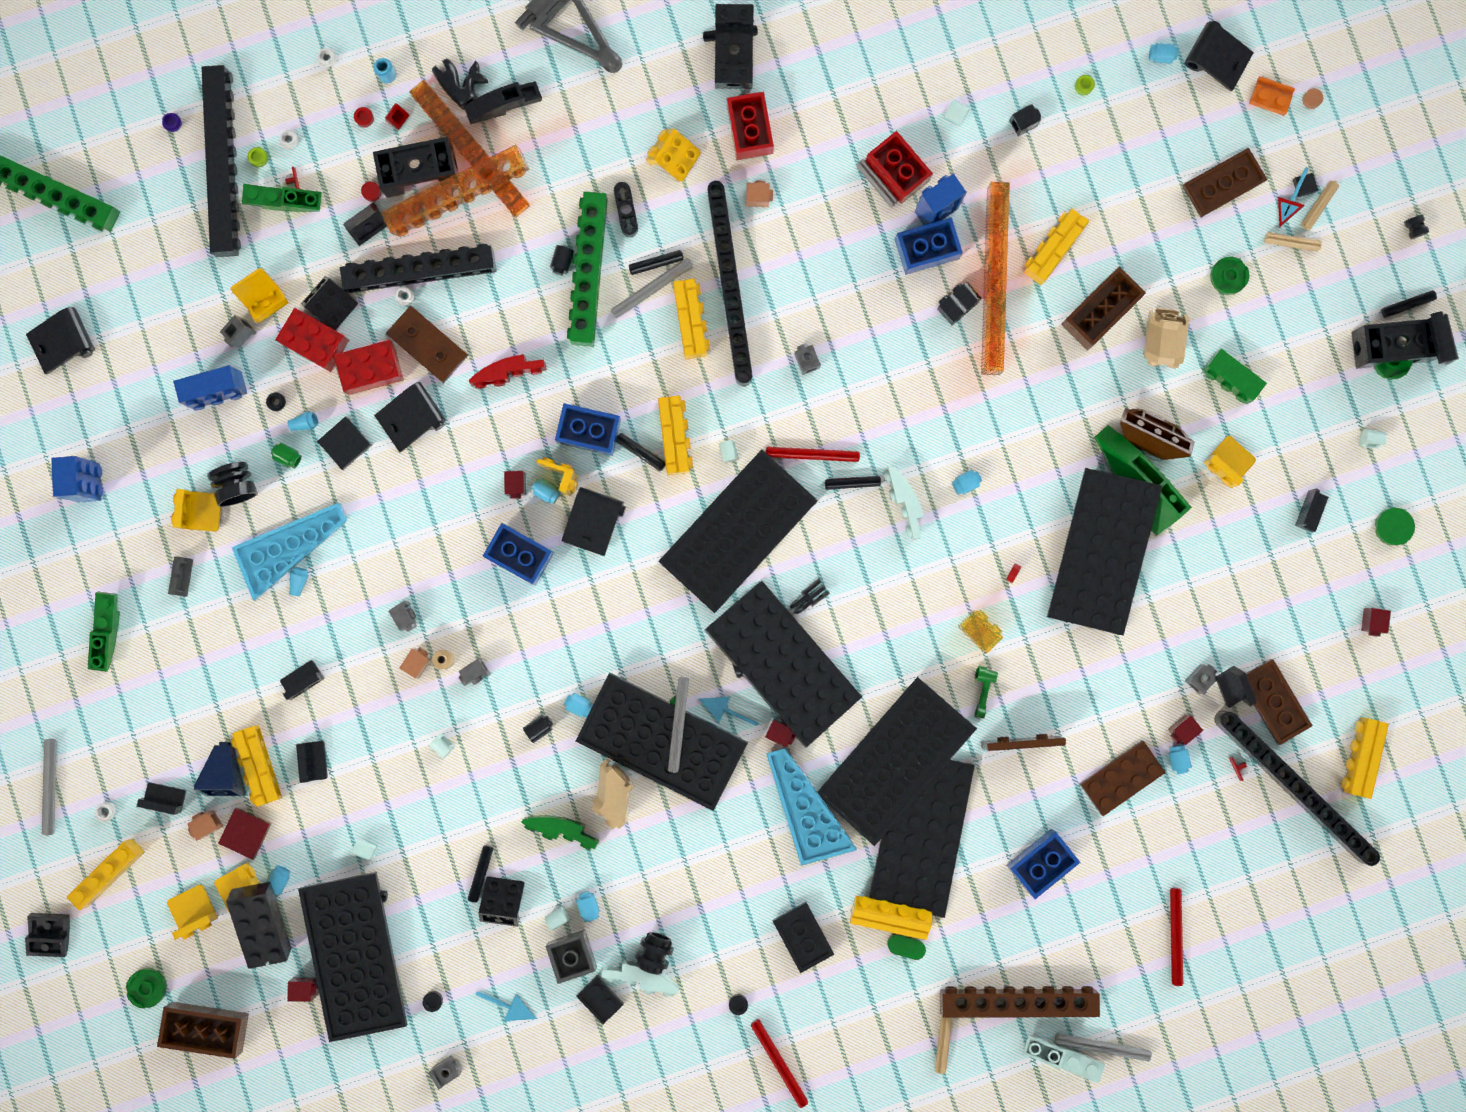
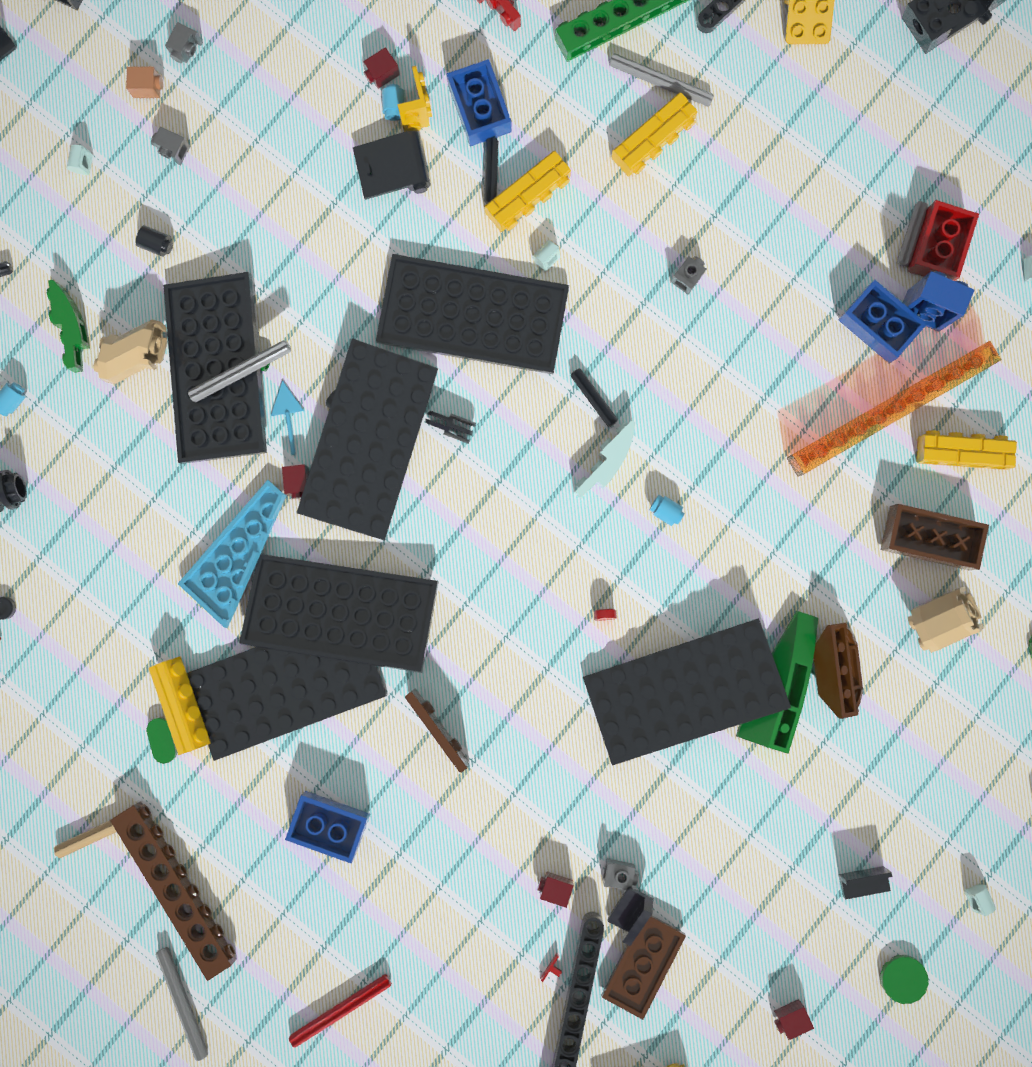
camera: 60 degrees right, 0 degrees up
(449, 659) = (163, 106): tan brick -> none
(518, 554) = (312, 113): blue brick -> none
(578, 705) = (201, 264): medium azure brick -> none
(656, 262) = (689, 67): black axle -> none
(729, 274) = (721, 142): black beam -> none
(750, 126) = (886, 70): red brick -> none
(758, 194) = (823, 123): nougat brick -> none
(803, 937) = (107, 630): black plate -> none
(813, 454) = (597, 340): red axle -> none
(958, 303) = (844, 390): black brick -> none
(981, 631) = (525, 618): clear yellow brick -> none
(985, 676) = (482, 653): green brick -> none
(1064, 1058) = (145, 969): light aqua slope -> none
(1122, 778) = (467, 855): reddish brown plate -> none
(1179, 759) = (522, 902): medium azure brick -> none
(1230, 462) = (861, 766): yellow bracket -> none
(1234, 376) = (951, 716): green brick -> none

